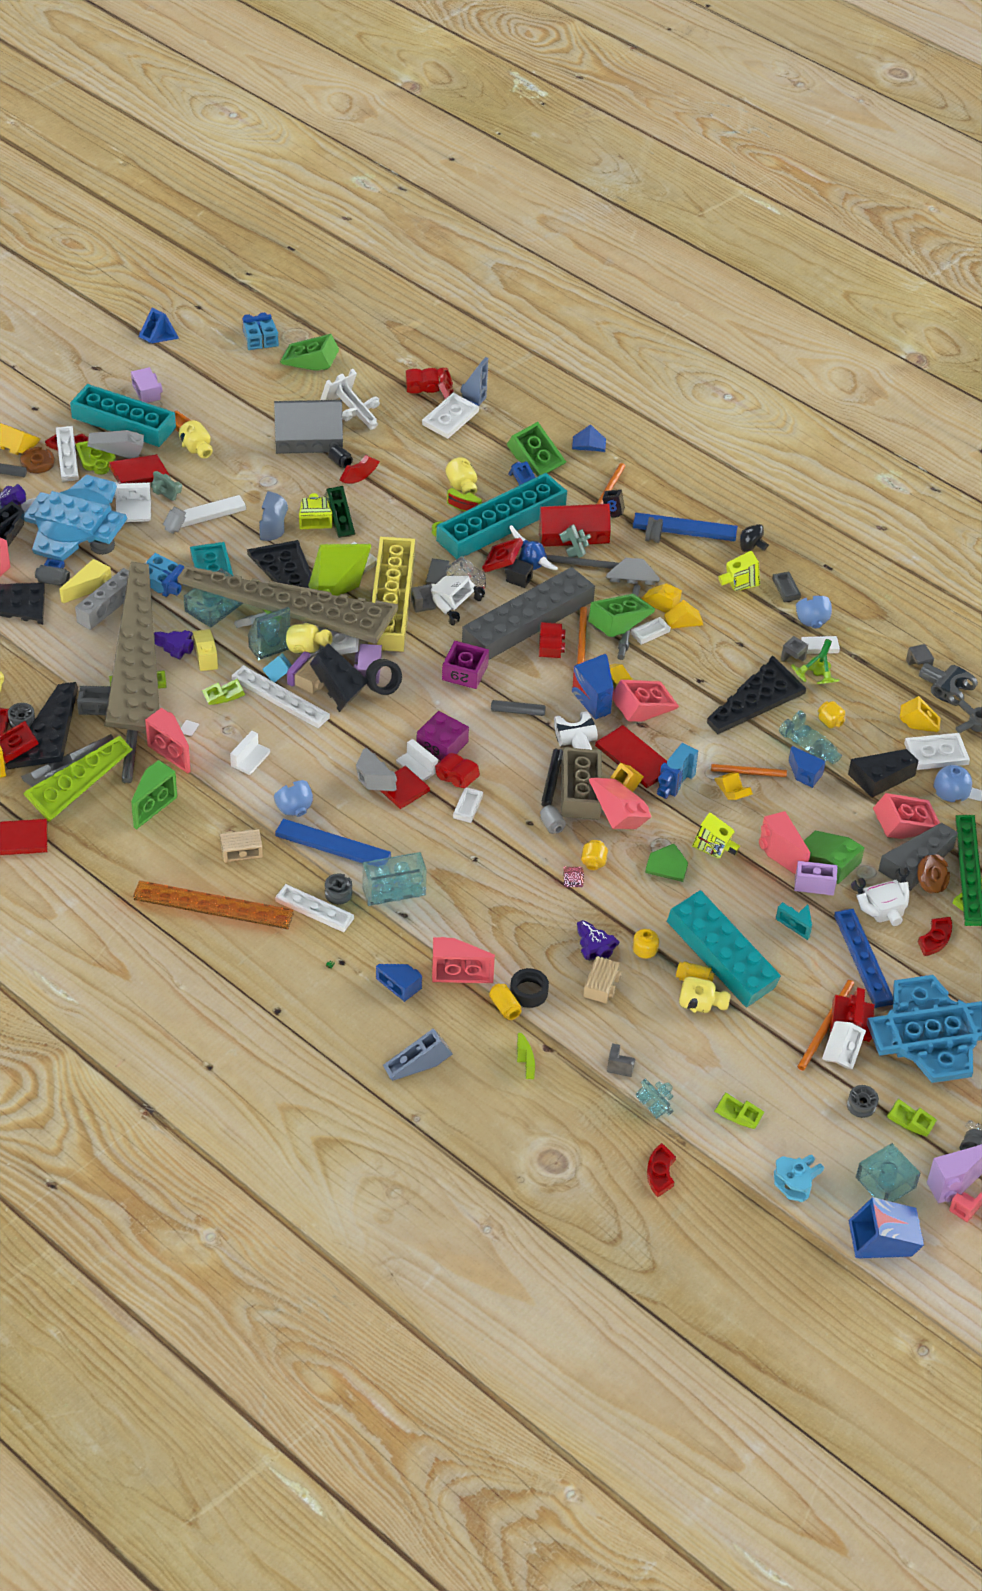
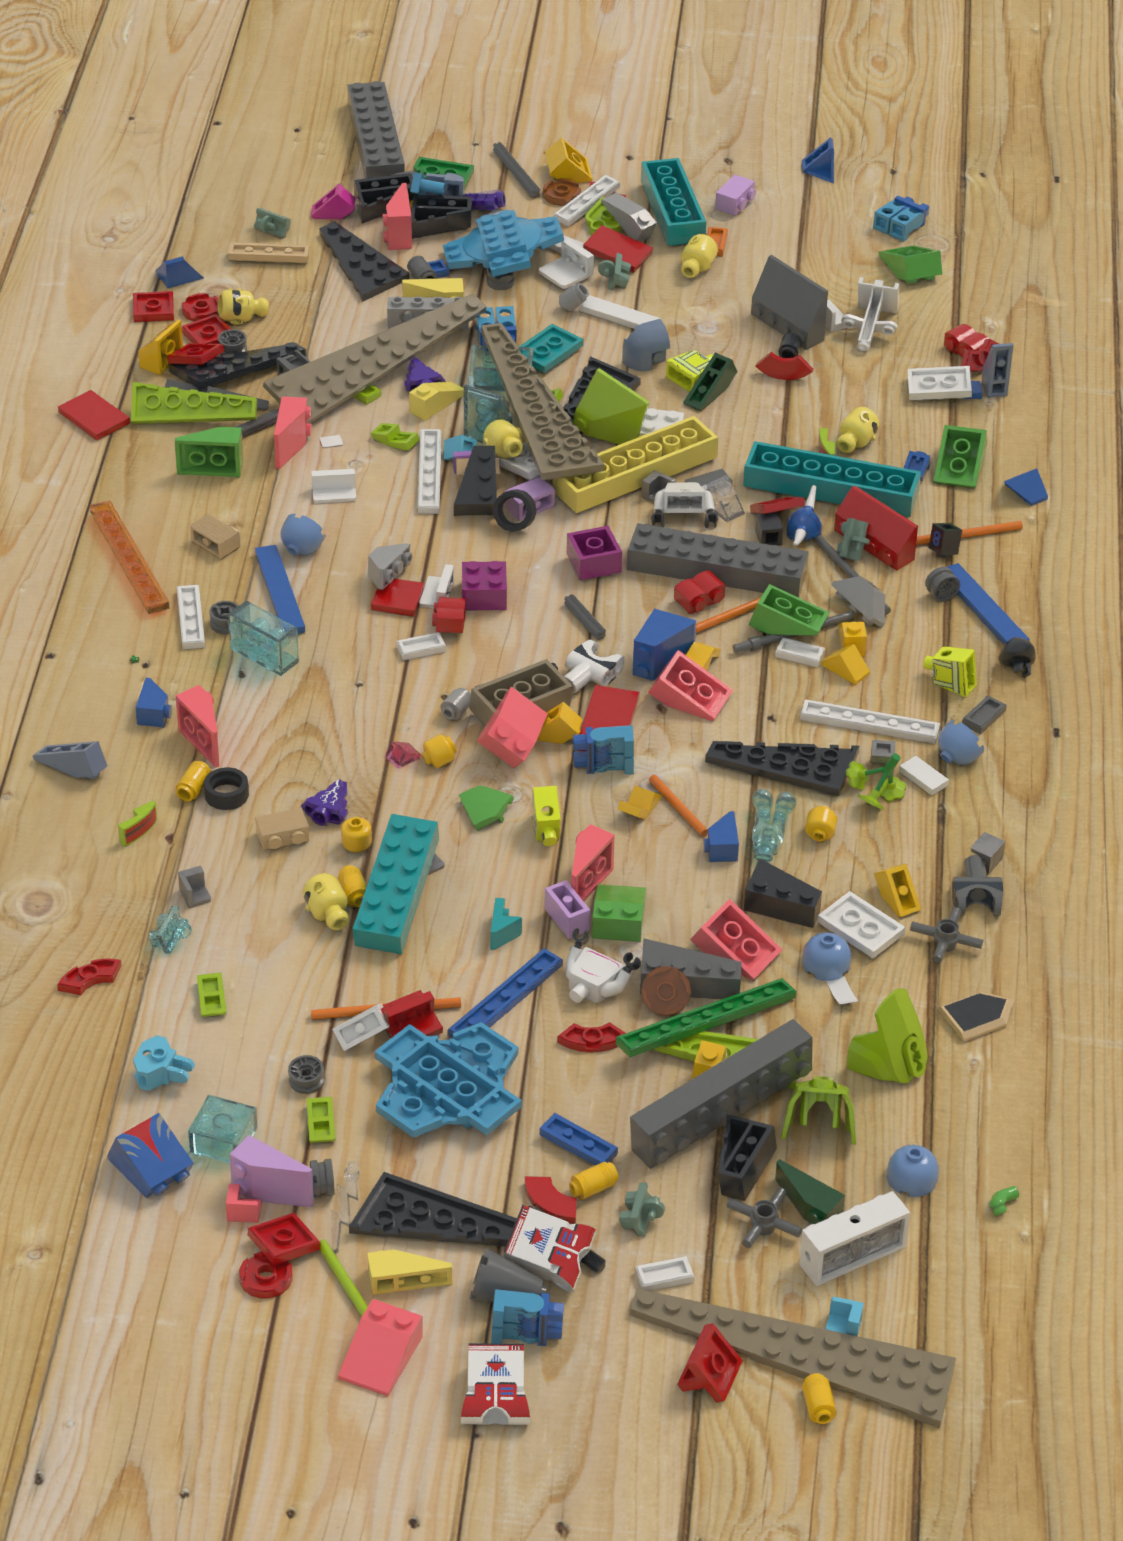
camera: 55 degrees right, 5 degrees down
(746, 639) = (870, 721): none -> white tile

